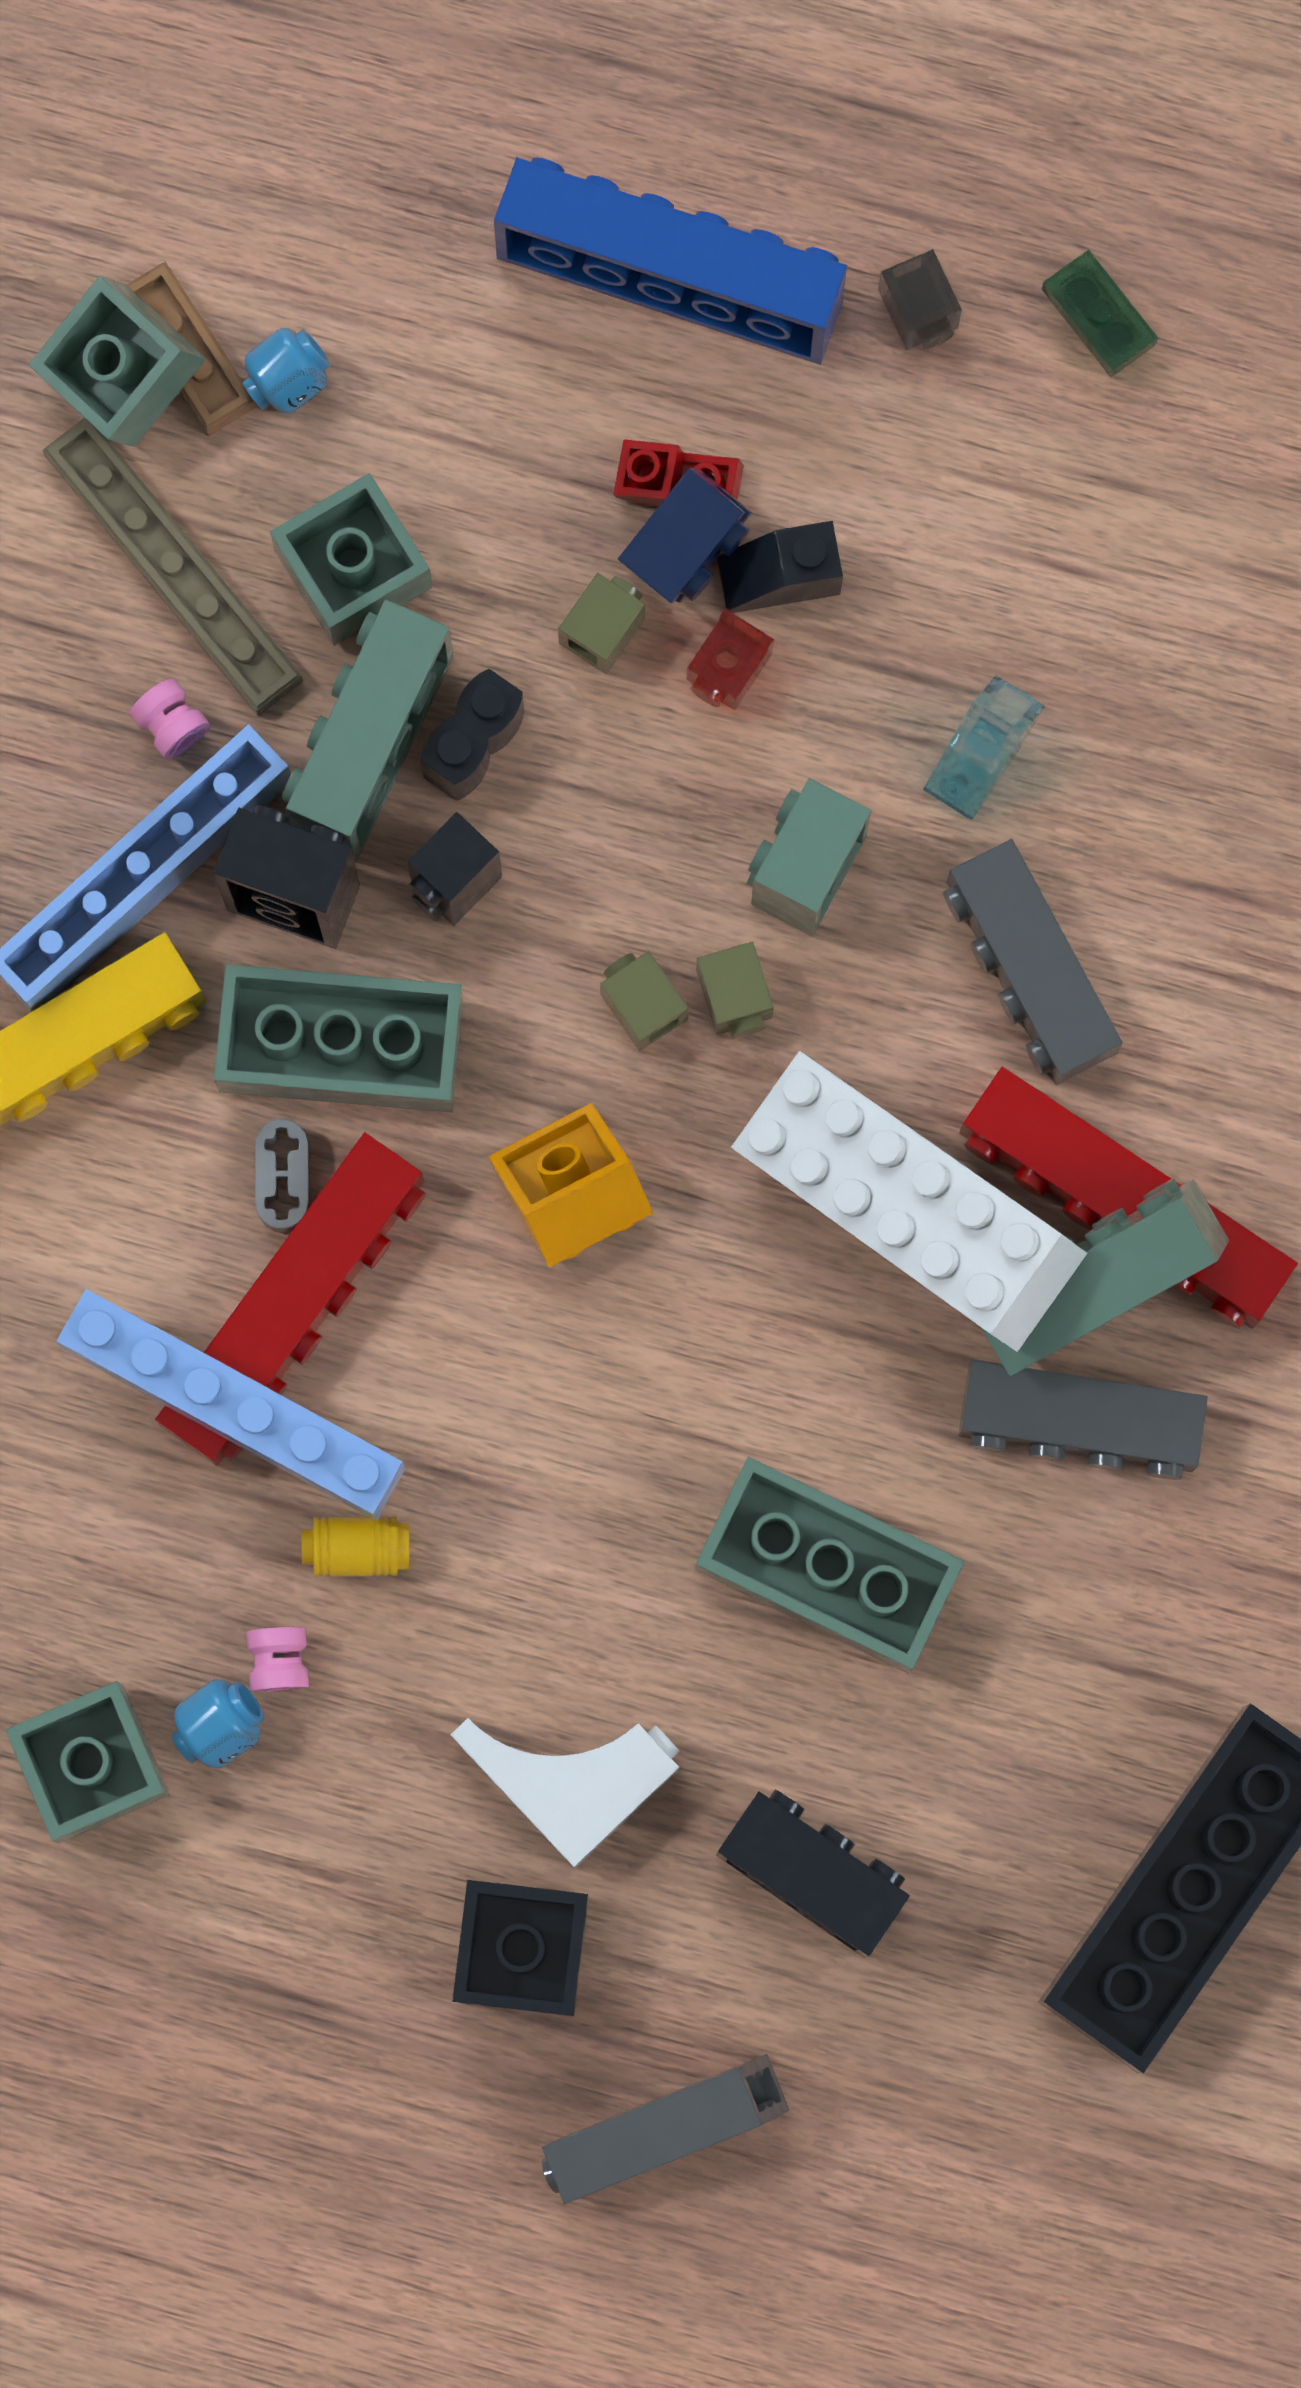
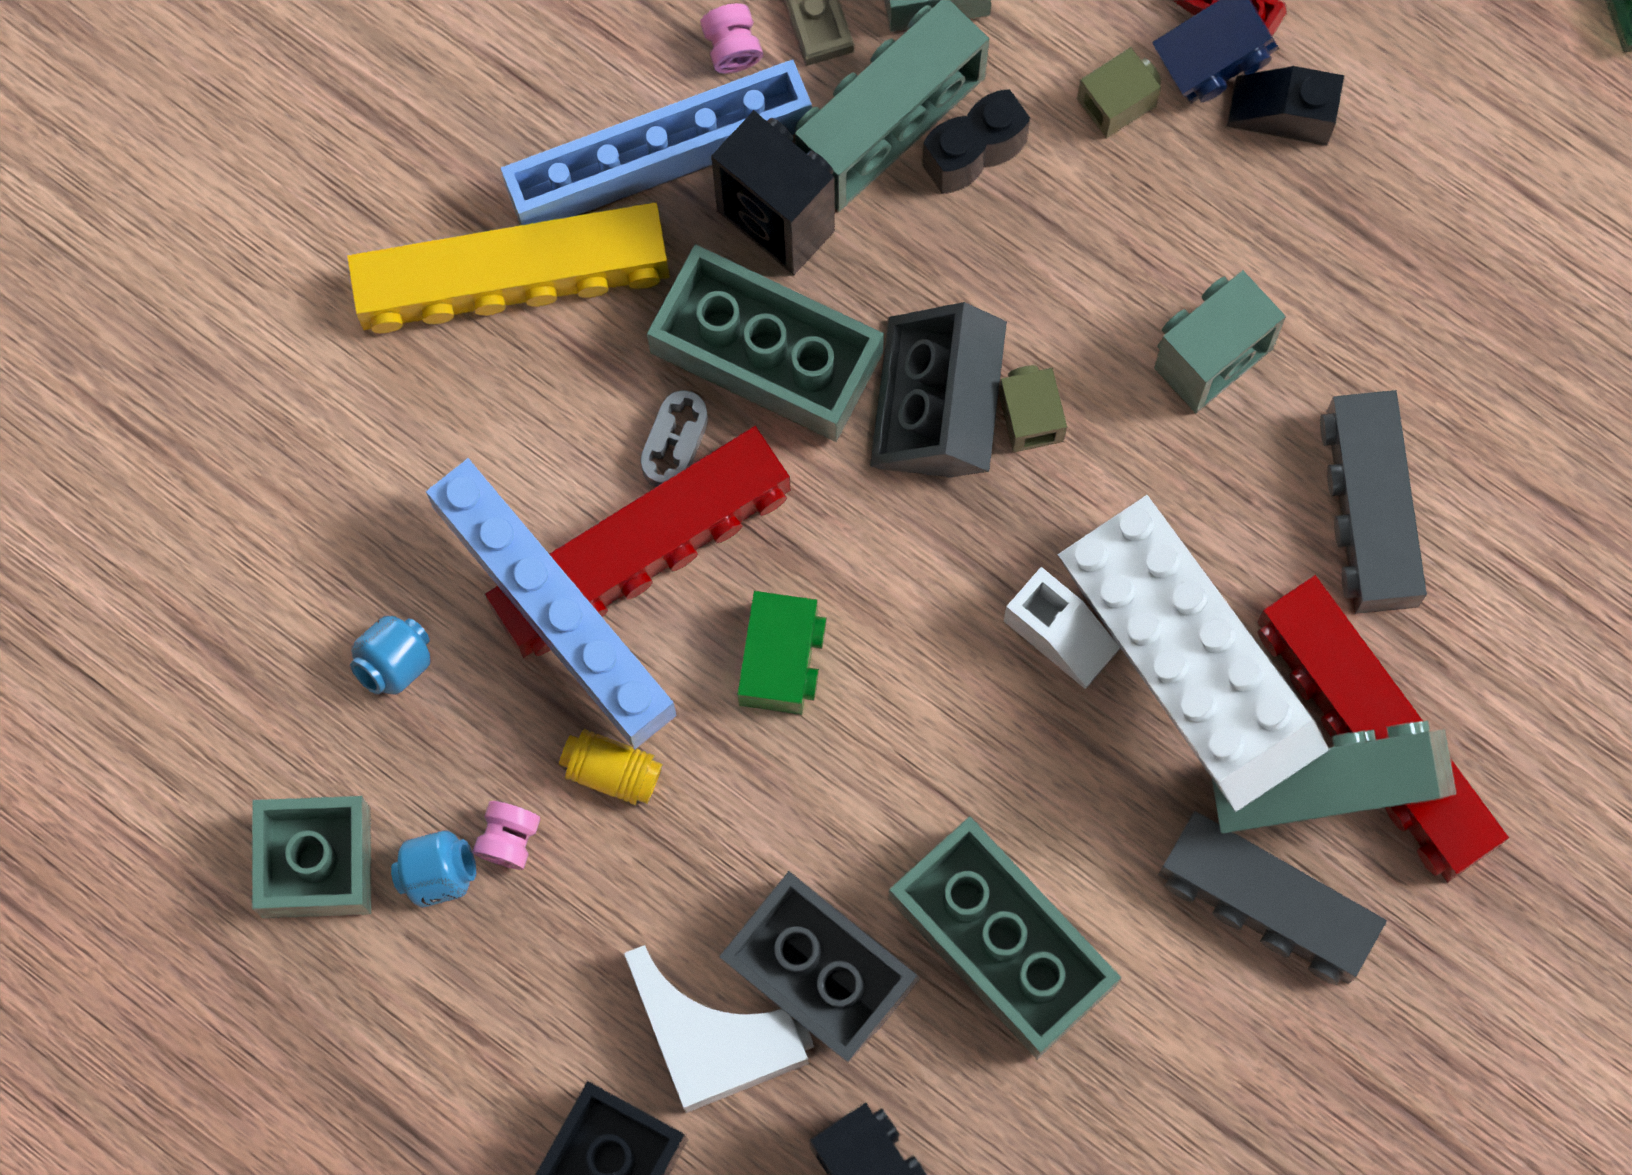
camera: 25 degrees right, 5 degrees down
(80, 1519) = (390, 655): none -> dark azure head
(453, 870) = (915, 241): black brick -> none
(483, 1359) = (779, 653): none -> green brick
(539, 1019) = (939, 391): none -> dark grey slope
(571, 1185) = (911, 538): light orange slope -> none
(654, 1670) = (819, 967): none -> dark grey slope
(729, 685) = (1208, 180): clear red brick -> none
(735, 990) = (1113, 429): olive brick -> none
(763, 1221) = (1061, 627): none -> white slope
(983, 747) = (1400, 309): clear light blue slope -> none

